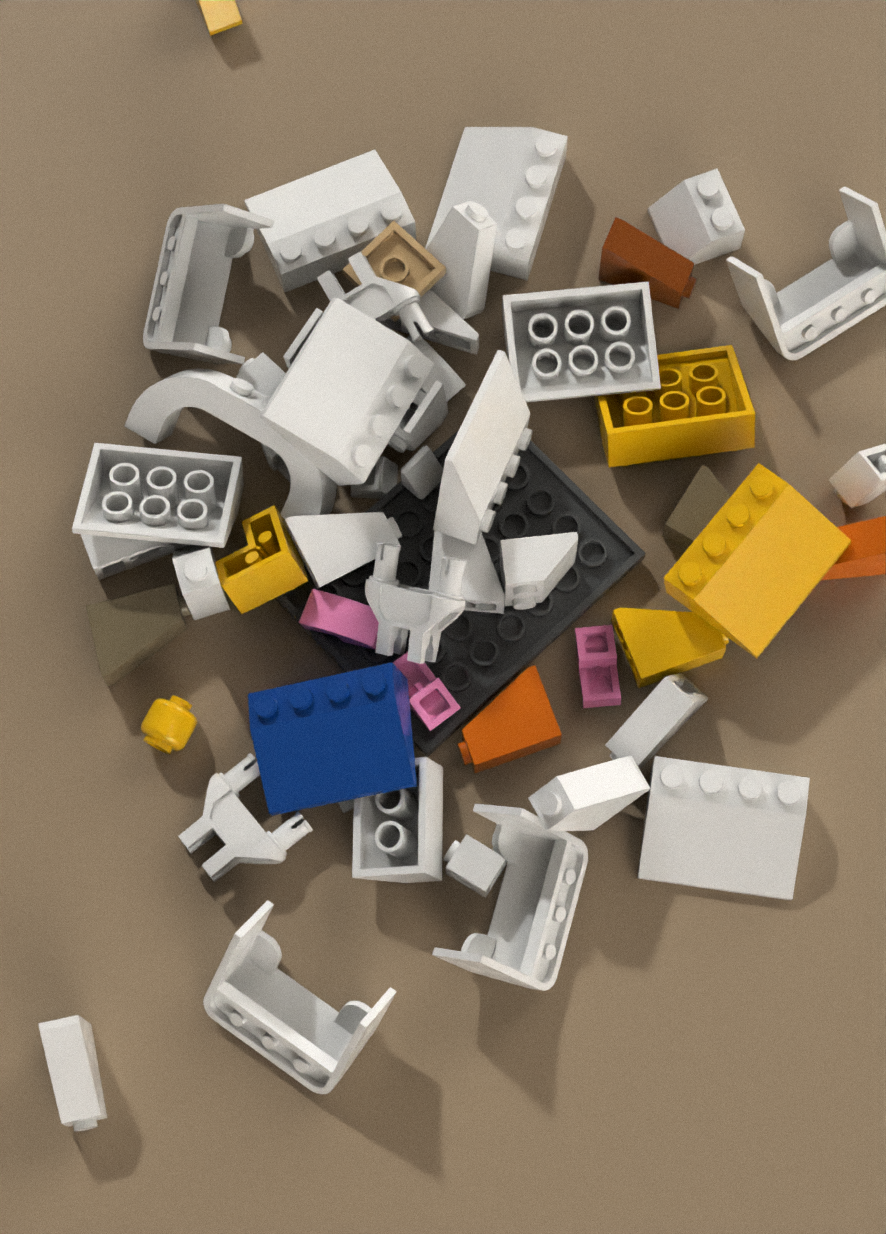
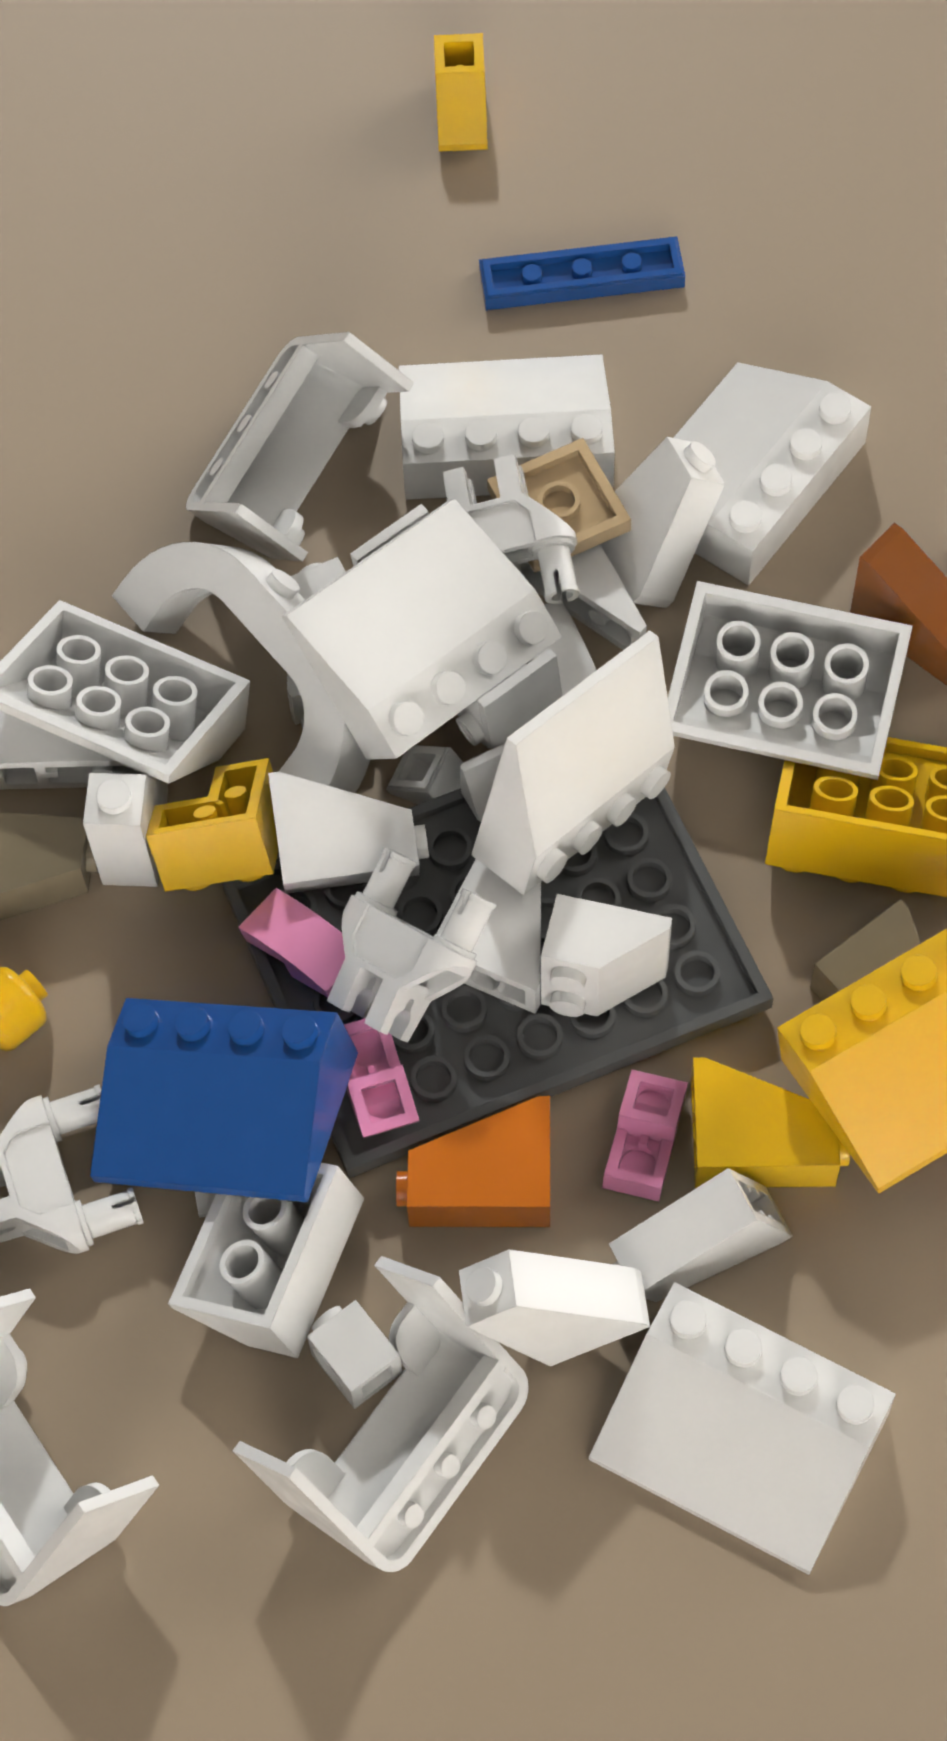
camera: 20 degrees right, 10 degrees down
(339, 95) = (581, 273): none -> blue tile

